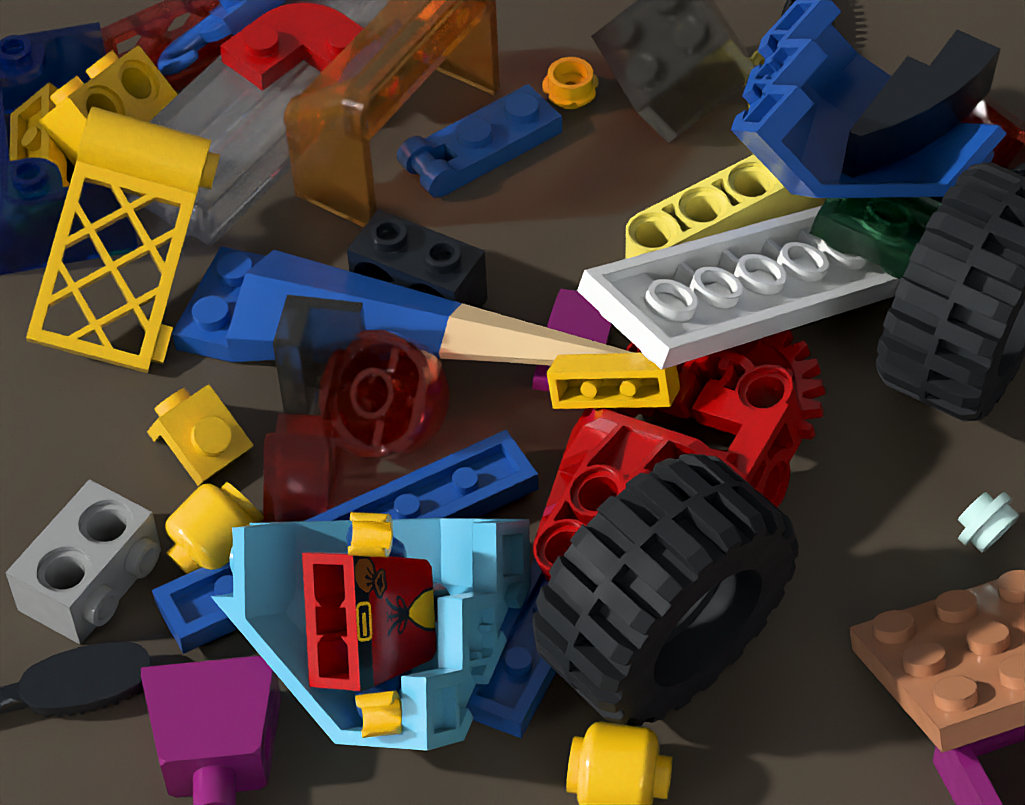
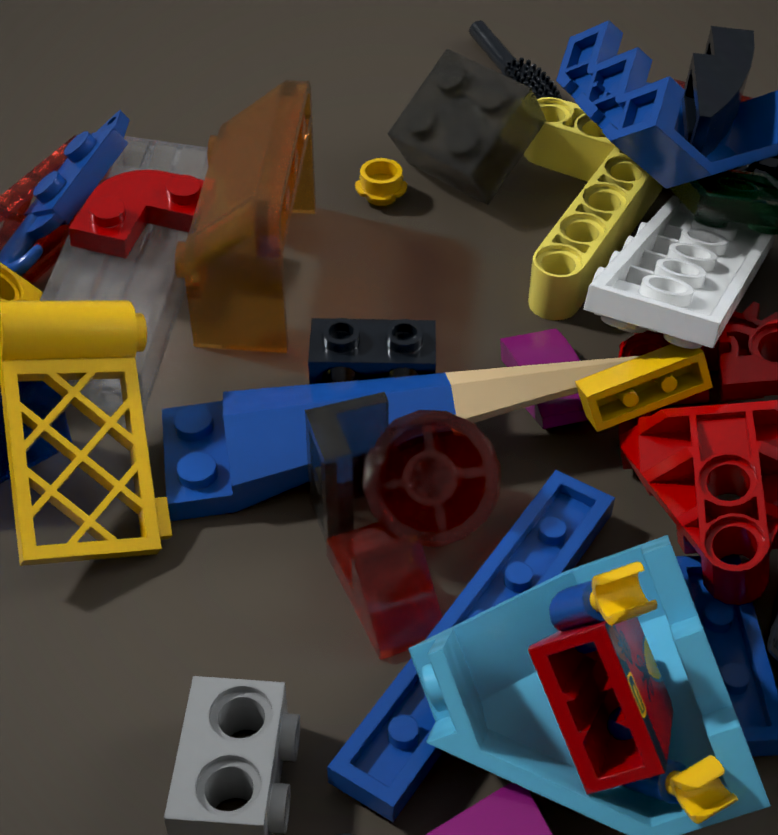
camera: 30 degrees left, 5 degrees down
(199, 432) = (260, 586): yellow bracket -> none
(204, 526) = (346, 677): yellow head -> none
(480, 141) = (337, 248): blue plate -> none

